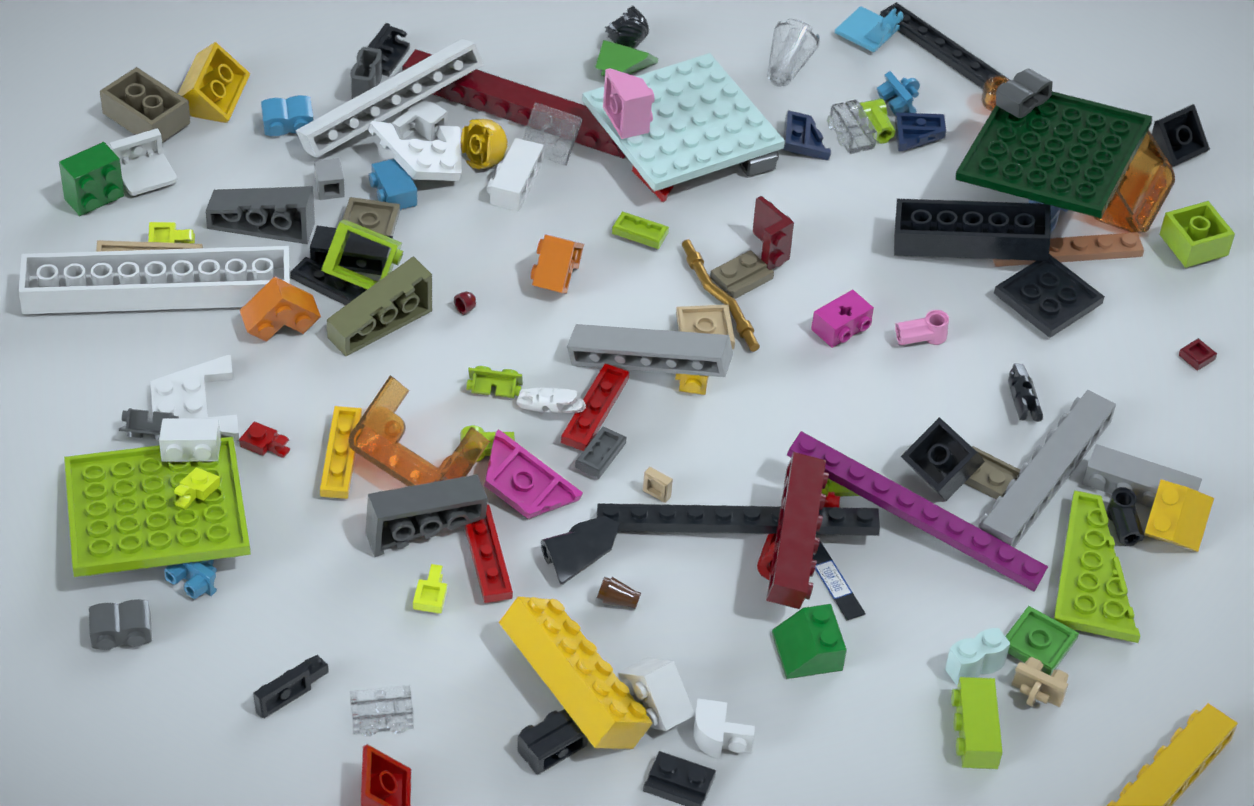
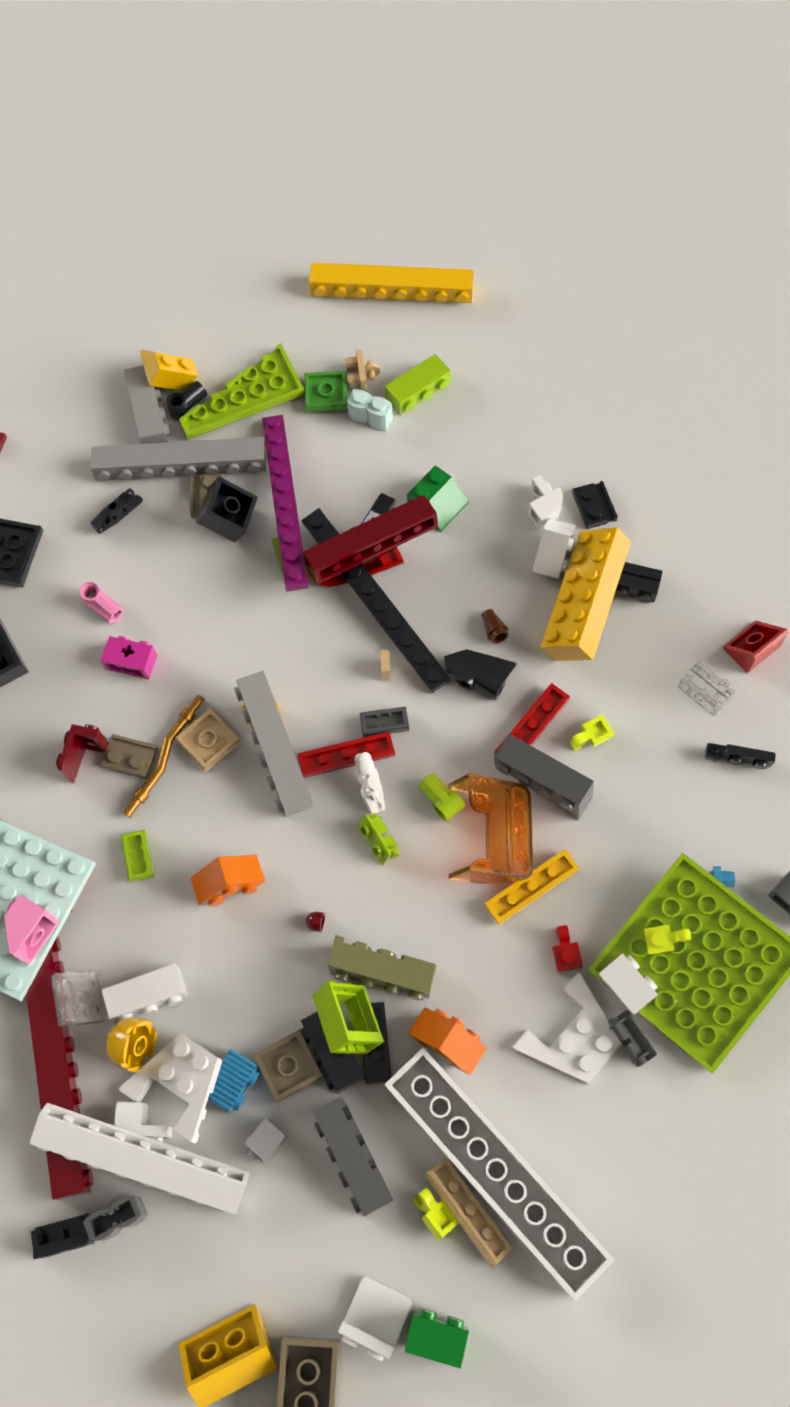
camera: 120 degrees left, 20 degrees up
(286, 115) = (216, 1247): dark azure brick -> none
(525, 480) = (454, 746): dark pink wing -> none

